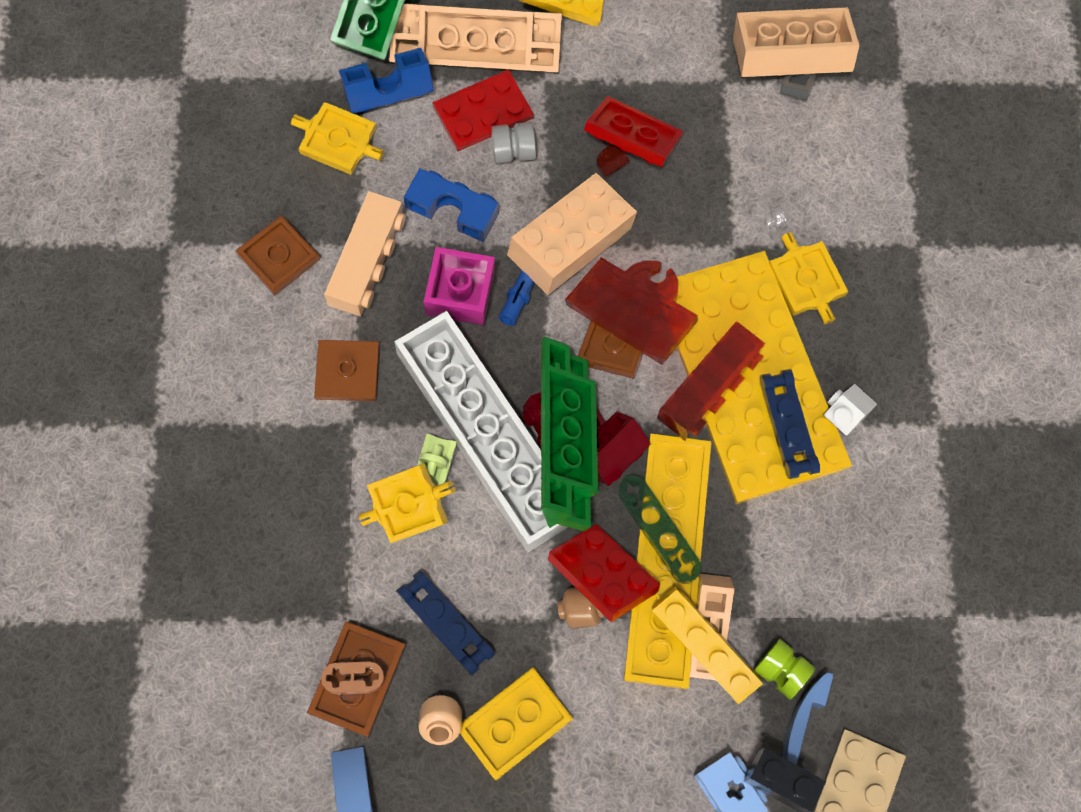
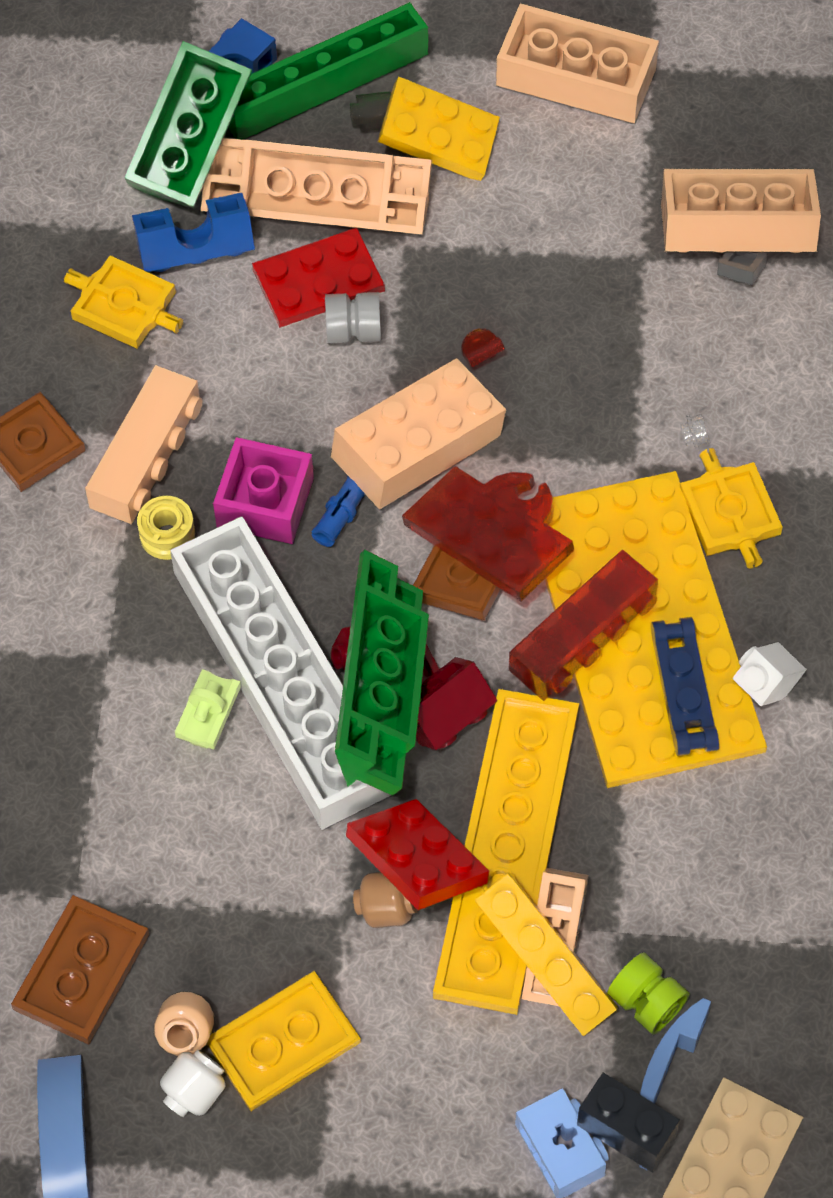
camera: 10 degrees right, 10 degrees down
(347, 370) = (106, 589): dark orange plate -> none
(352, 686) = (75, 954): nougat beam -> none
(383, 307) = (163, 512): none -> light yellow wheel
(407, 503) = (167, 752): yellow plate -> none
(431, 191) = (240, 373): blue arch -> none
(445, 622) = (204, 908): dark blue plate -> none
(451, 766) = (192, 1083): none -> white head
(633, 131) = (513, 311): red plate -> none
(655, 531) = (492, 808): clear green beam -> none

